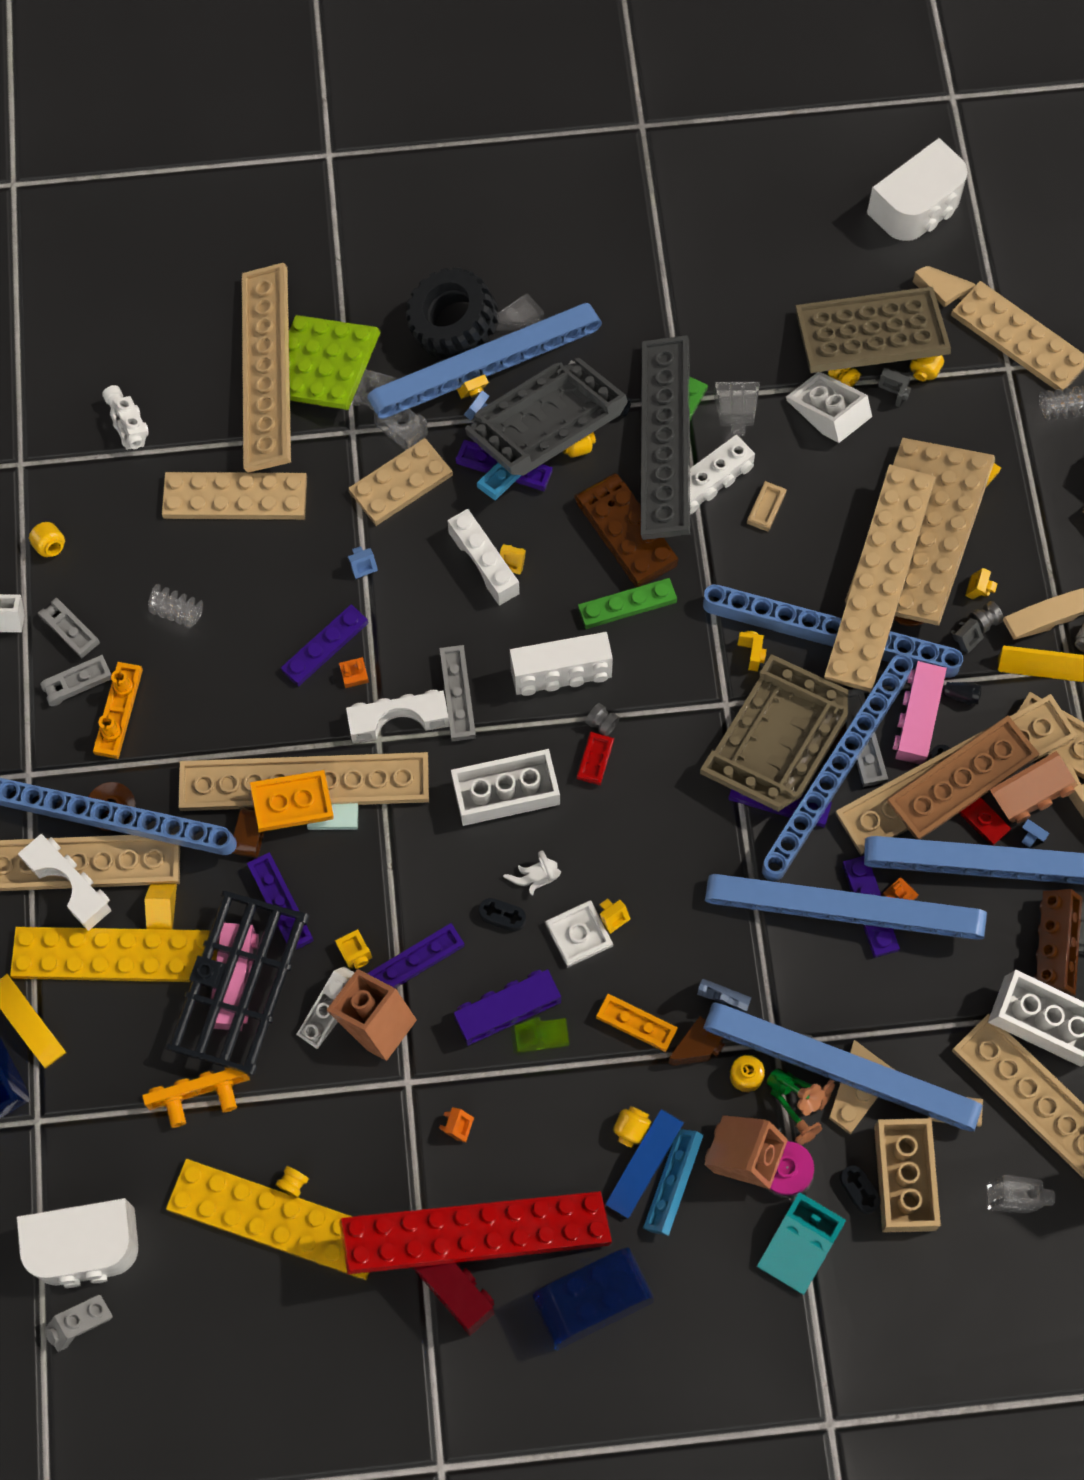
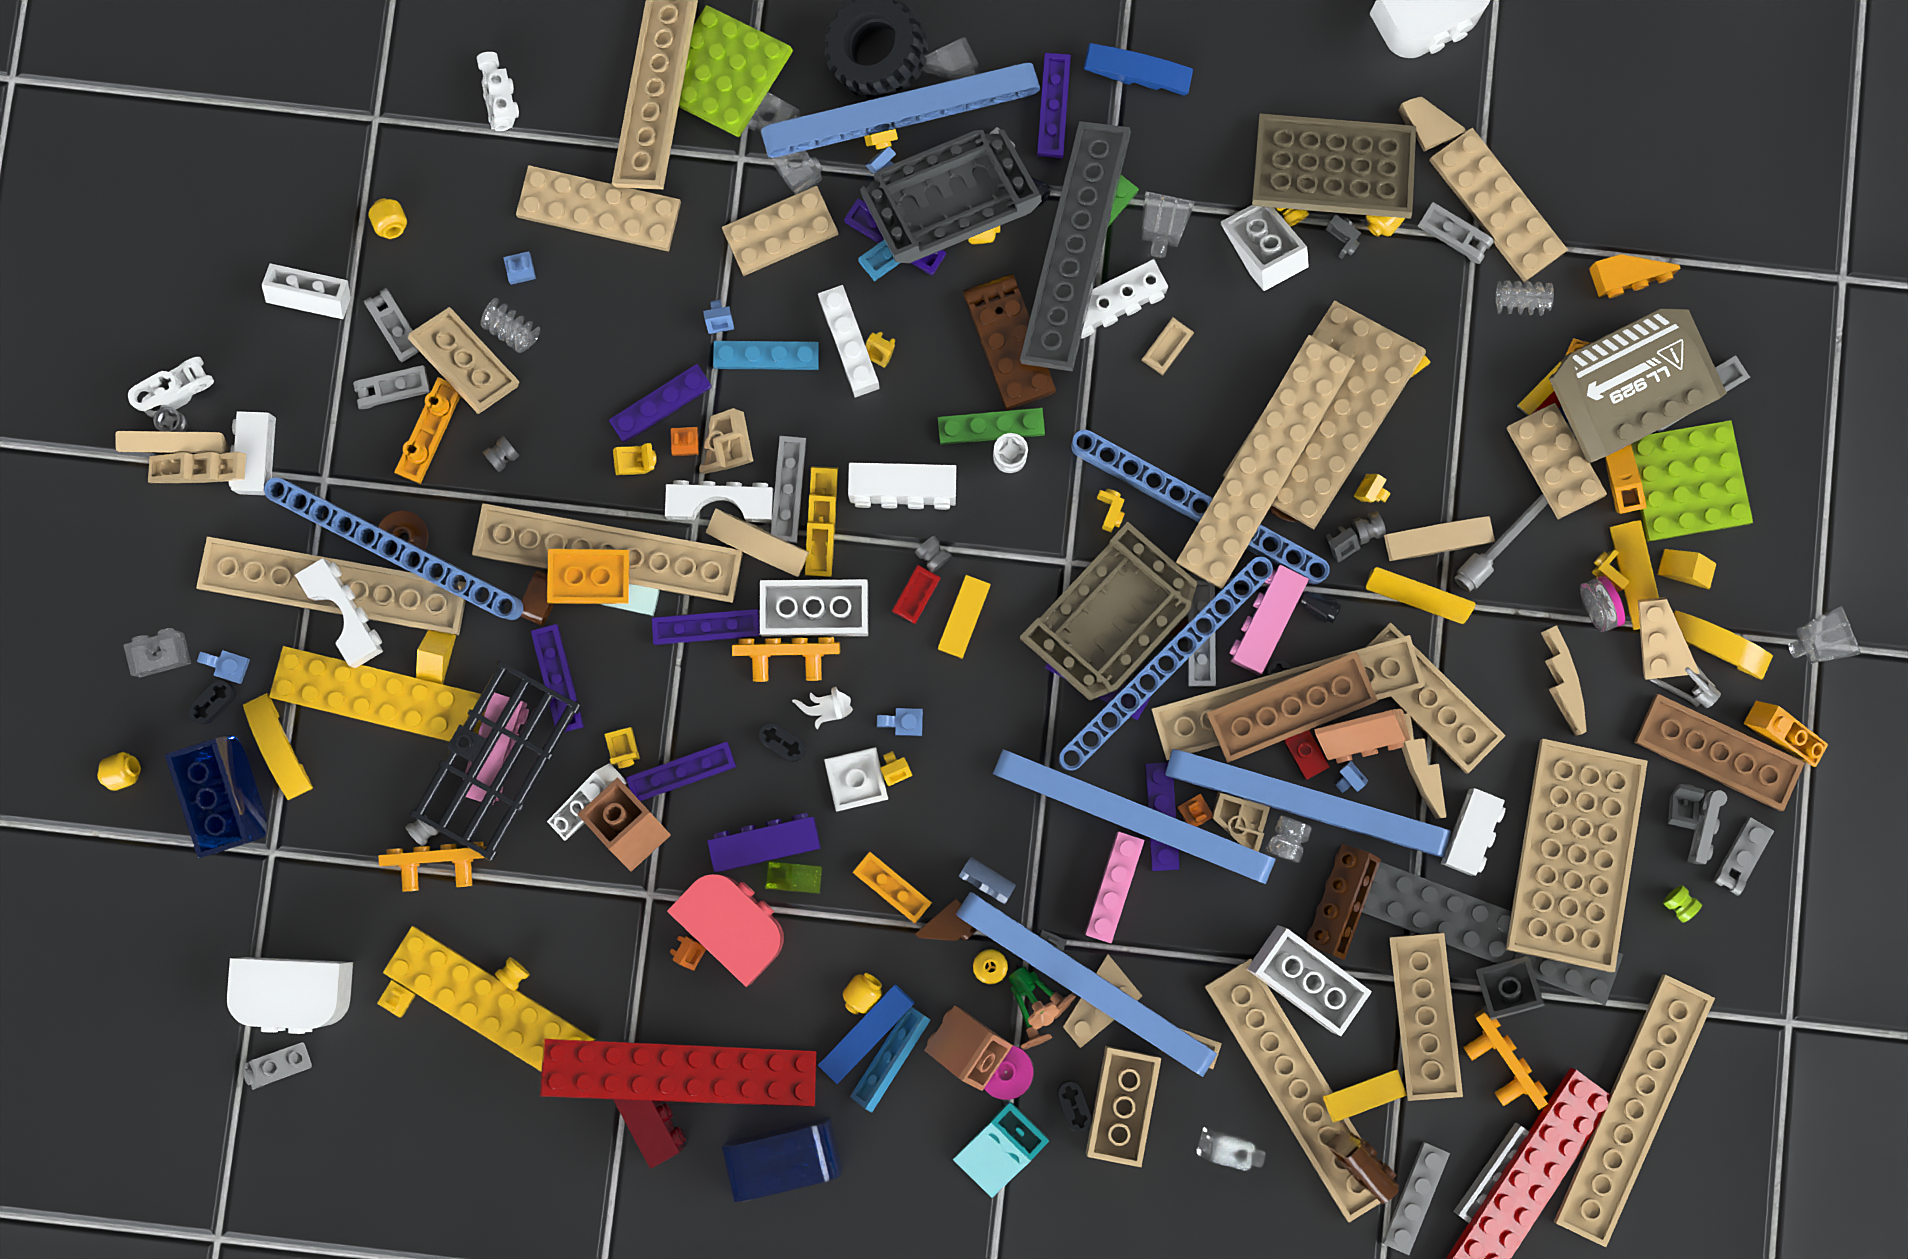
camera: 10 degrees right, 15 degrees up
(138, 642) = (463, 360): none -> tan plate
(173, 558) = (519, 268): none -> medium blue tile
(179, 1065) = (421, 831): none -> light grey wheel
(183, 1231) = (396, 998): none -> yellow tile
(188, 715) = (500, 453): none -> flat silver wheel
(311, 696) = (634, 459): none -> yellow bracket
(392, 665) = (727, 442): none -> tan slope
(409, 827) = (706, 627): none -> dark purple plate
(411, 585) = (766, 355): none -> dark azure plate
(440, 742) = (757, 542): none -> tan slope
(492, 1085) = (730, 925): none -> coral brick
(493, 712) = (821, 521): none -> yellow slope
(499, 824) = (799, 646): none -> light orange plate
(612, 872) = (906, 722): none -> medium blue plate
(616, 334) = (1053, 105): none -> dark purple plate
(643, 769) = (964, 616): none -> yellow tile
(651, 619) = (1010, 453): none -> white wheel
(685, 290) = (1138, 68): none -> blue slope
(843, 977) = (1114, 887): none -> bright pink brick
(942, 888) = (1241, 819): none -> tan slope
(991, 365) = (1455, 232): none -> light grey plate
(994, 895) = (1289, 839): none -> clear wheel

